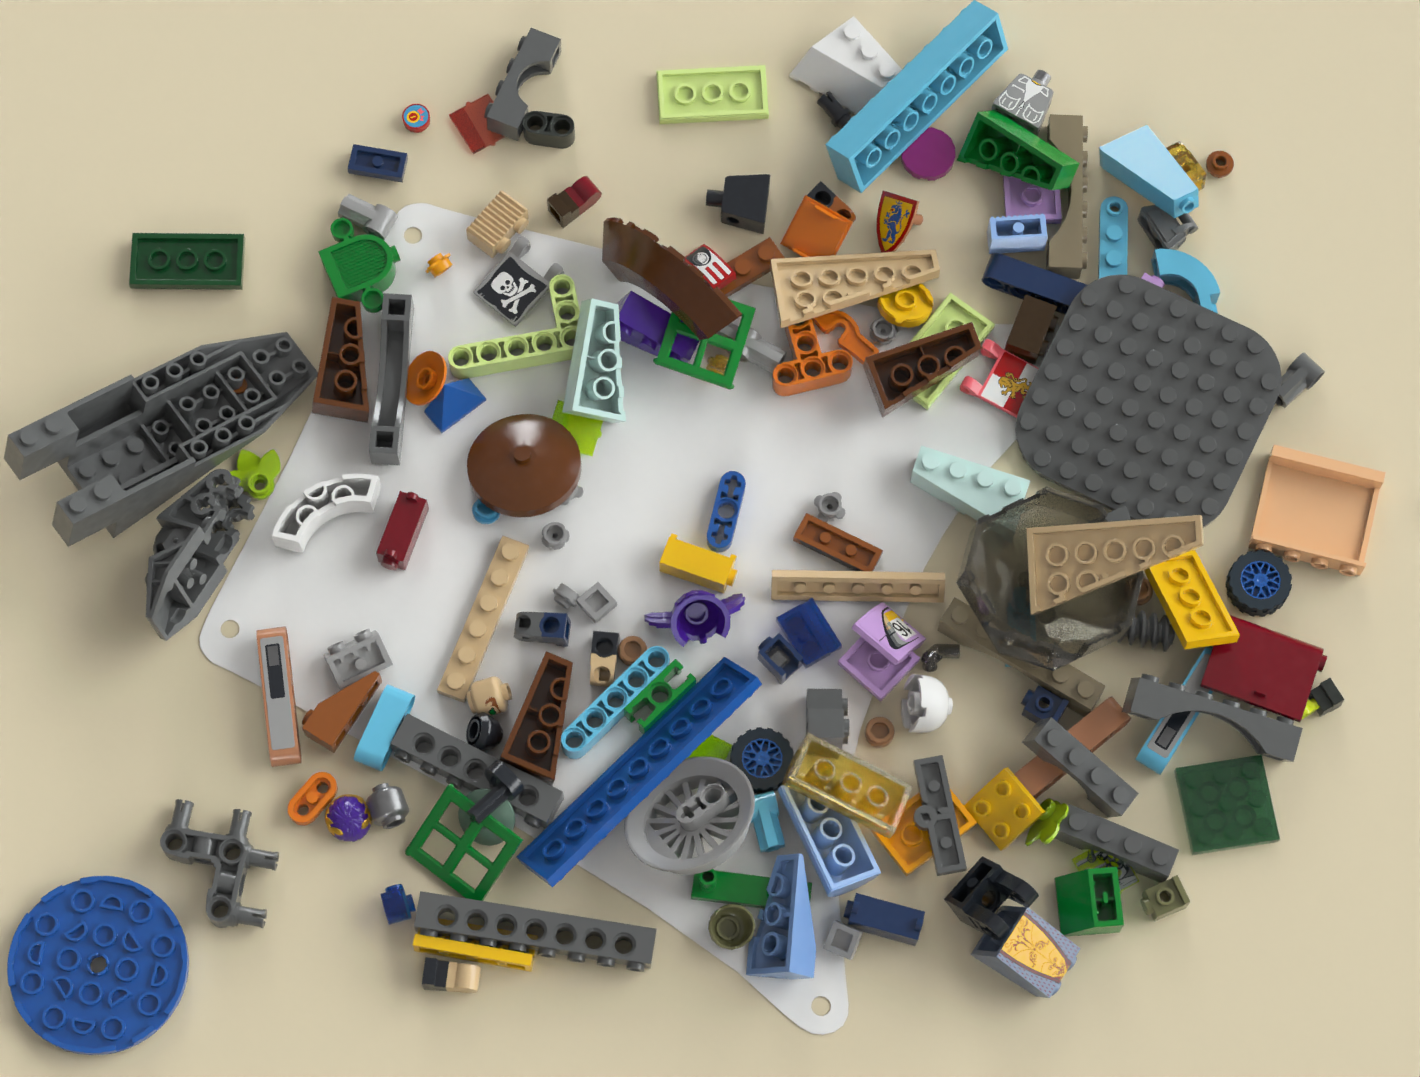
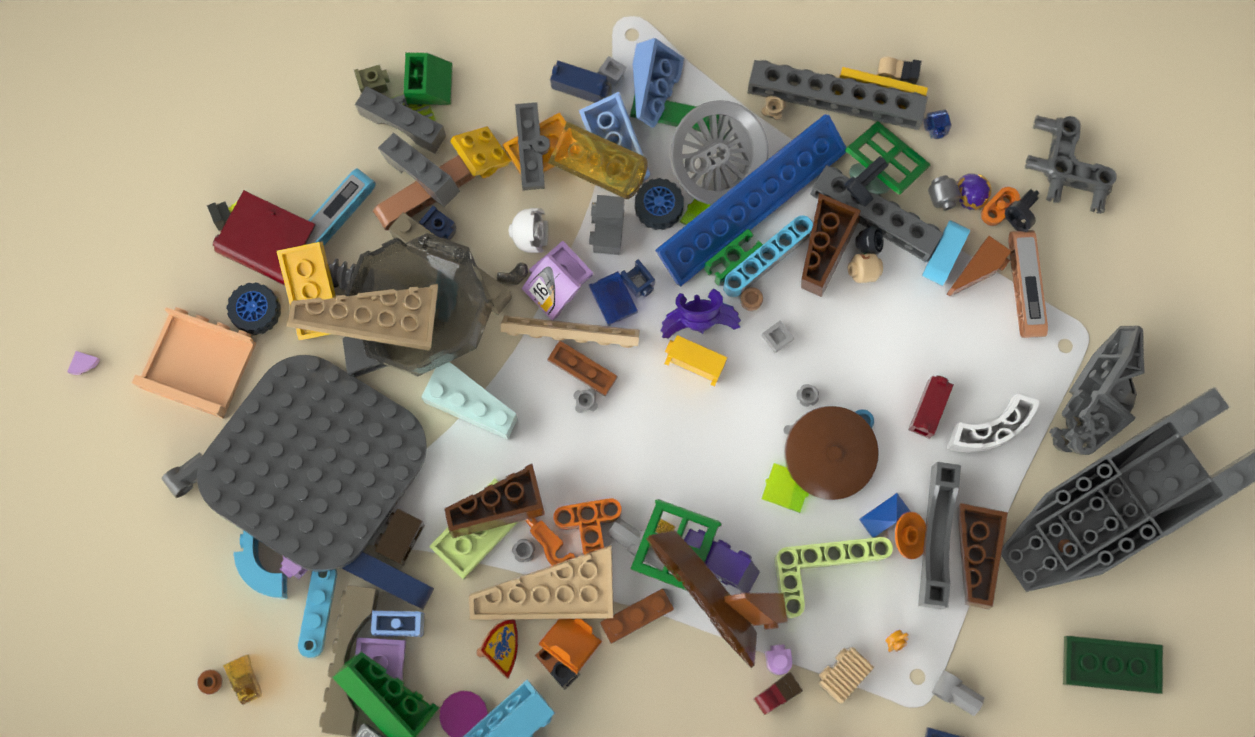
camera: 175 degrees left, 5 degrees up
(106, 1008) = (1129, 121): blue plate -> none
(256, 470) = (1051, 472): lime plate -> none
(292, 782) = (1021, 210): none -> black piece
(357, 658) = (967, 308): light grey bracket -> none
(359, 265) = (966, 643): green piece -> none
(483, 619) = (866, 334): tan plate -> none
(514, 286) = (832, 617): flag -> none
(543, 627) = (821, 318): leg -> none
(565, 596) = (801, 344): light grey plate -> none
(575, 234) = (778, 659): none -> lavender plate
(595, 368) = (770, 523): light aqua wedge -> none
(598, 275) = (760, 608): none -> dark orange slope
(603, 658) = (774, 292): leg -> none
(615, 902) = (776, 102): none -> tan plate
(715, 269) = (666, 617): slope -> none
(723, 490) = (658, 417): blue beam -> none
(731, 926) = (692, 85): olive hair -> none
(742, 201) = (631, 679): black torso -> none
(766, 822) = (660, 159): medium azure piece -> none
(879, 732) = (566, 222): medium nougat tile -> none
(907, 306) = (500, 566): yellow tile -> none
(983, 892) = (505, 91): black brick -> none
(1006, 382) = (426, 496): flag -> none
(1029, 953) = (480, 51): slope -> none
(1048, 824) = (442, 137): lime plate -> none
(1150, 170) = (270, 672): medium azure slope -> none
(1164, 229) = (269, 622): dark grey piece -> none
(1226, 805) = (312, 146): clear green plate -> none
(1267, 736) = (349, 206): dark grey arch -> none

